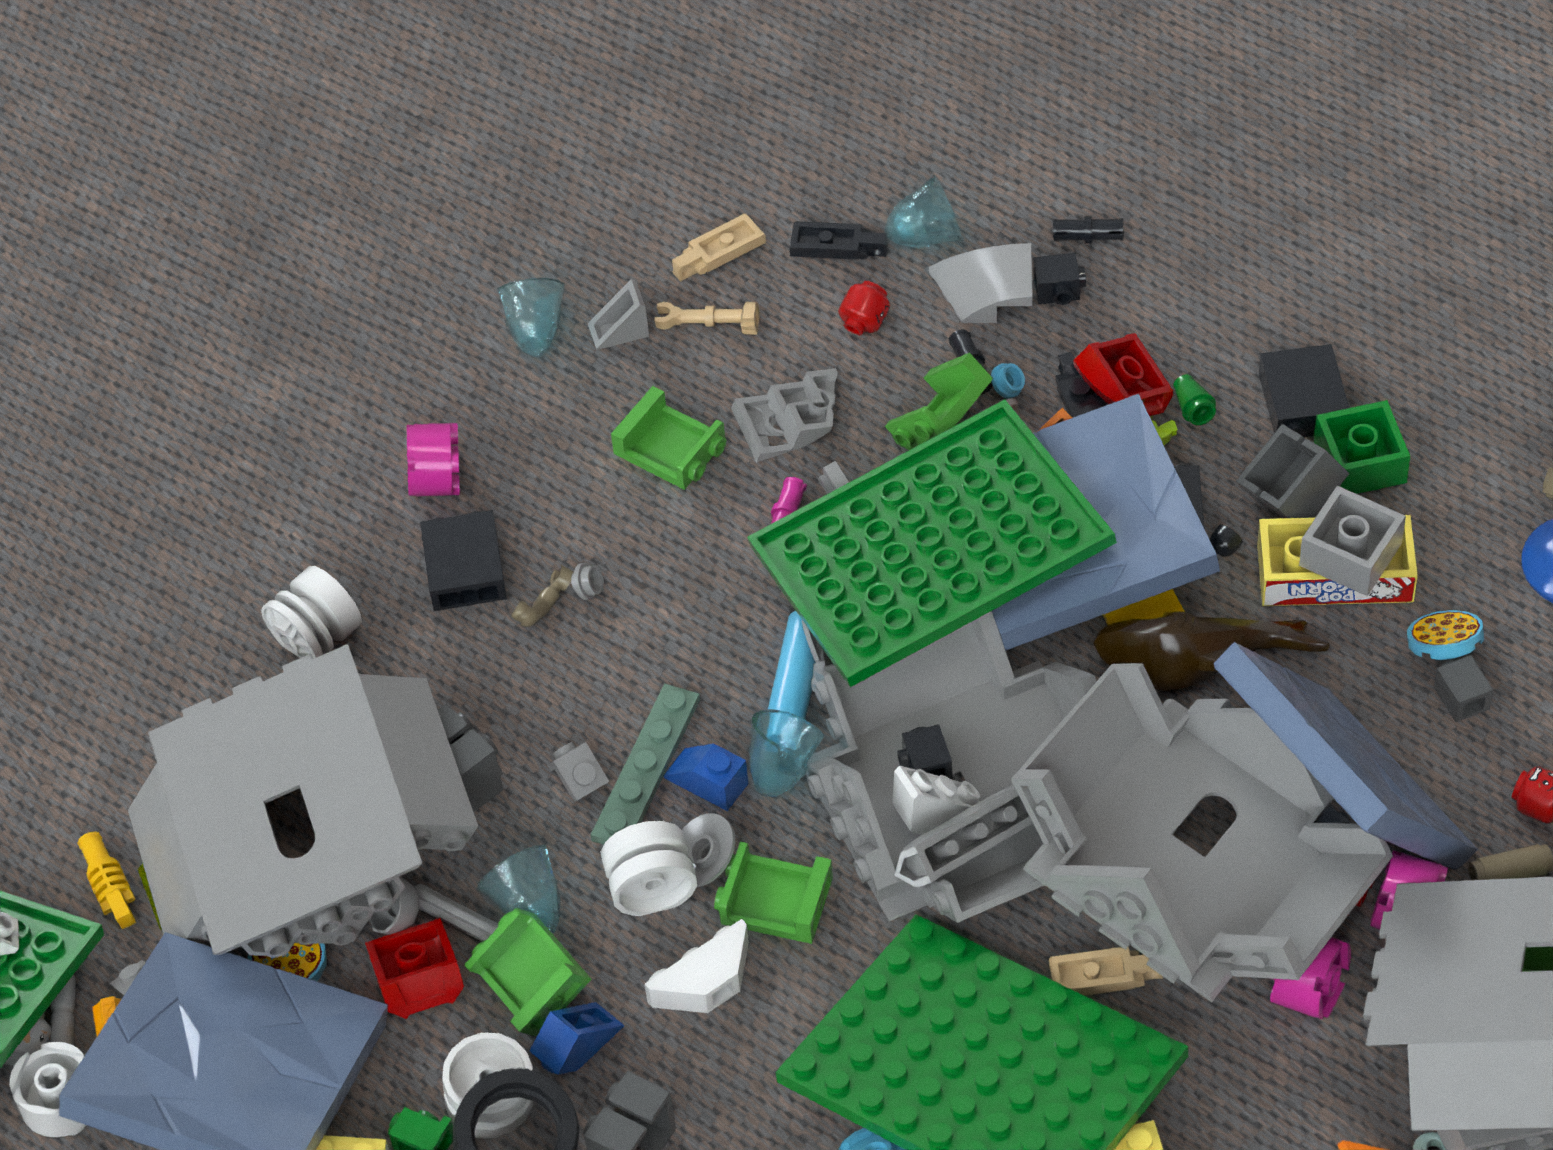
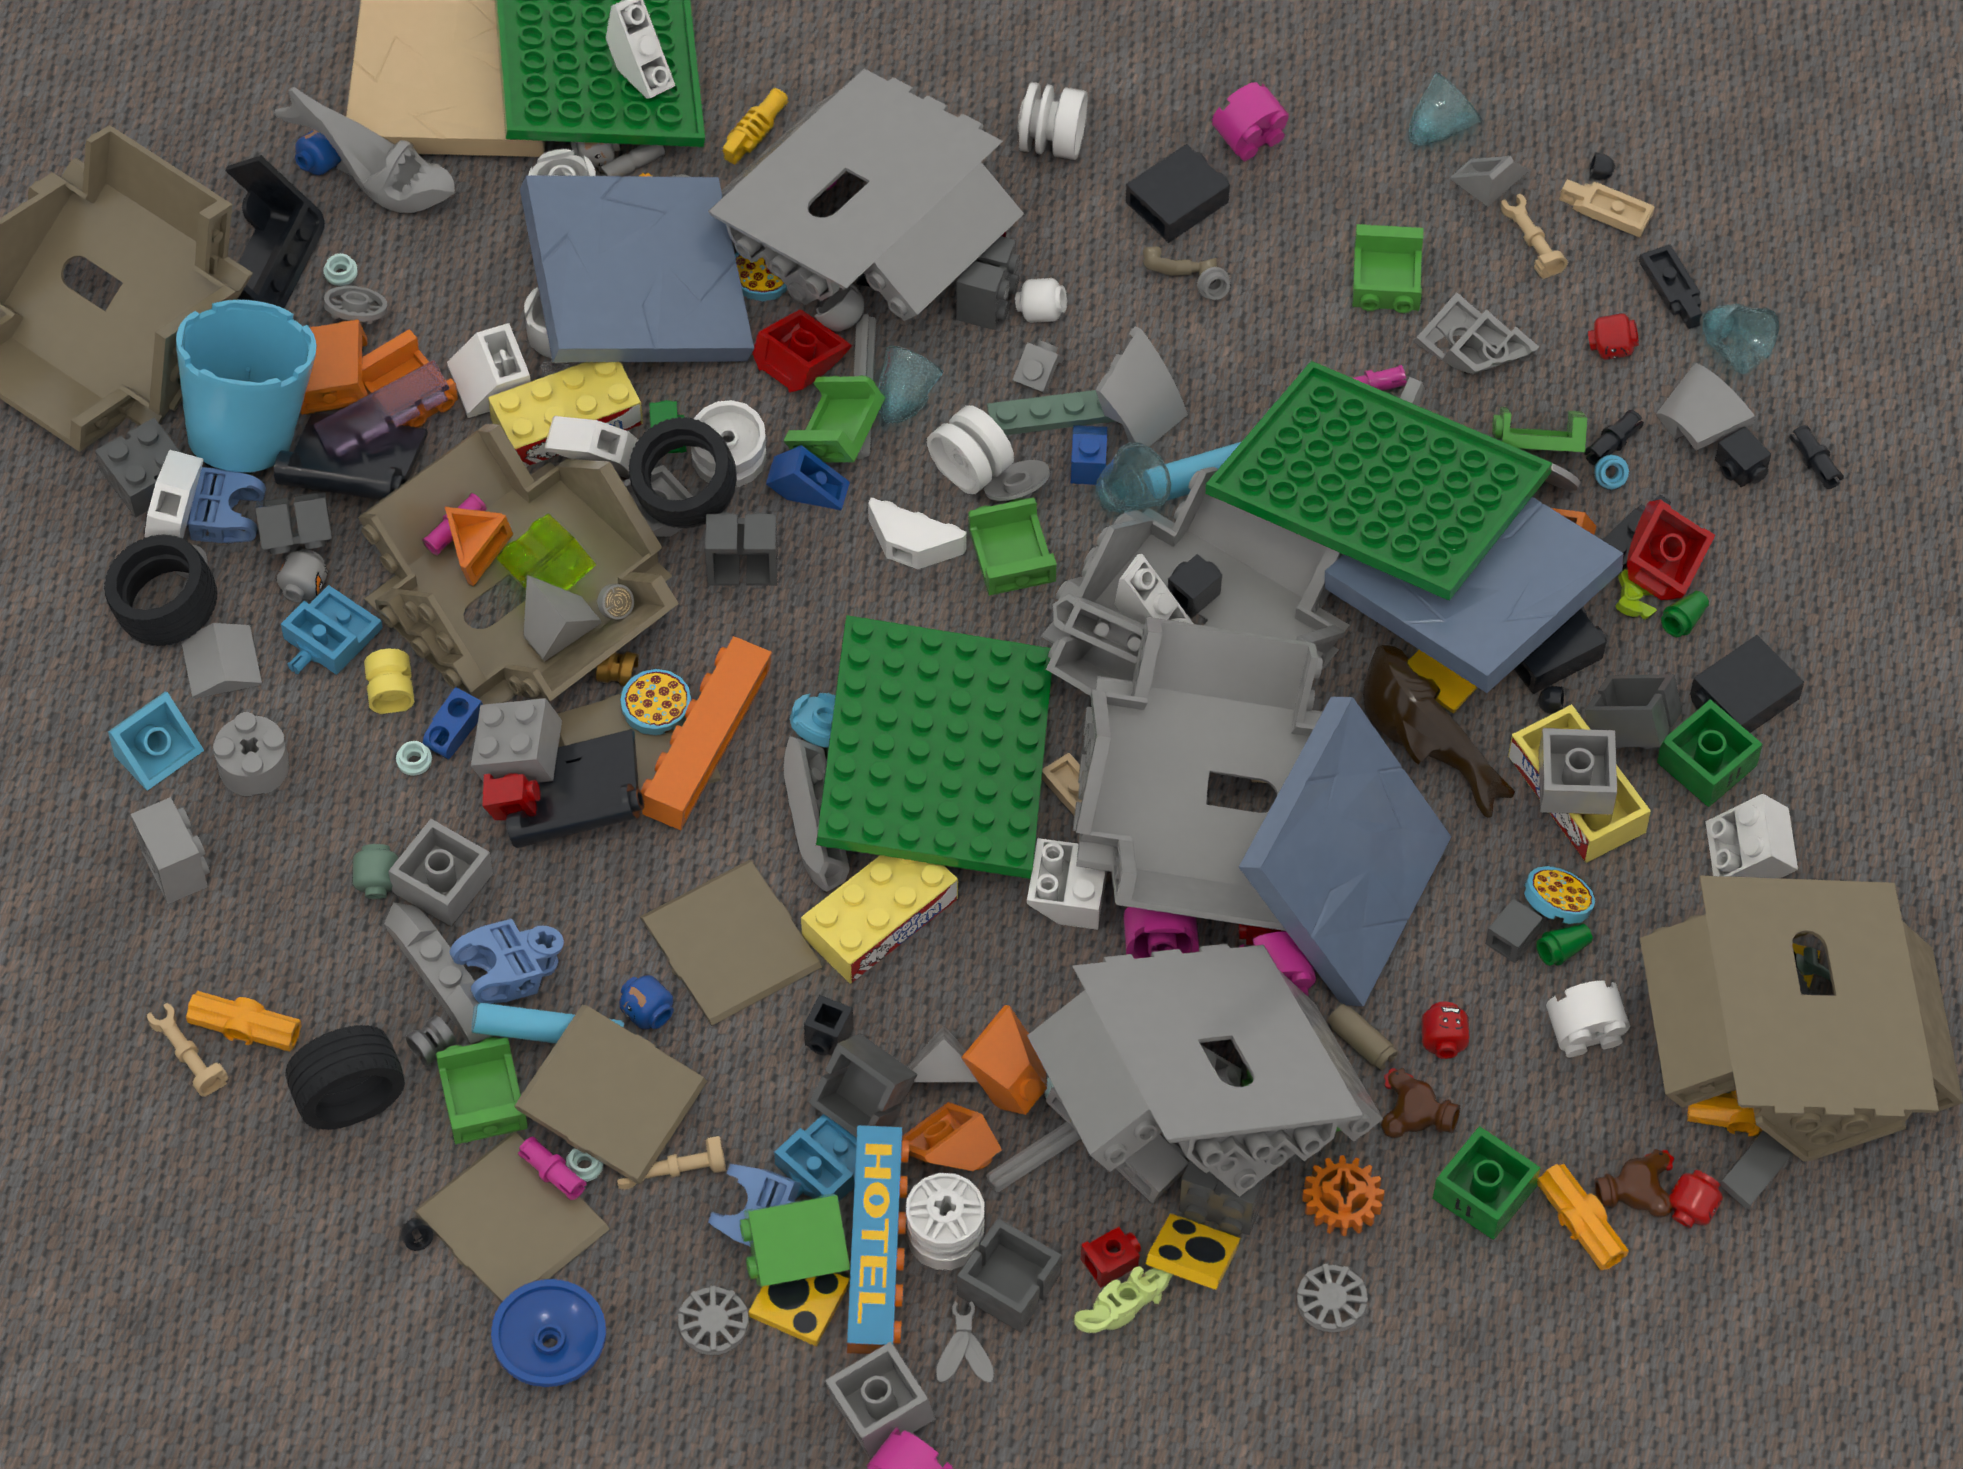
camera: 55 degrees right, 5 degrees up
(507, 727) = (1041, 300): none -> white head
(672, 228) = (1602, 166): none -> black hinge
(681, 693) = (1141, 392): none -> light grey slope
(1213, 1031) = (1062, 889): none -> white slope
(1469, 468) = (1752, 840): none -> white slope
(1496, 659) = (1561, 944): none -> green cone

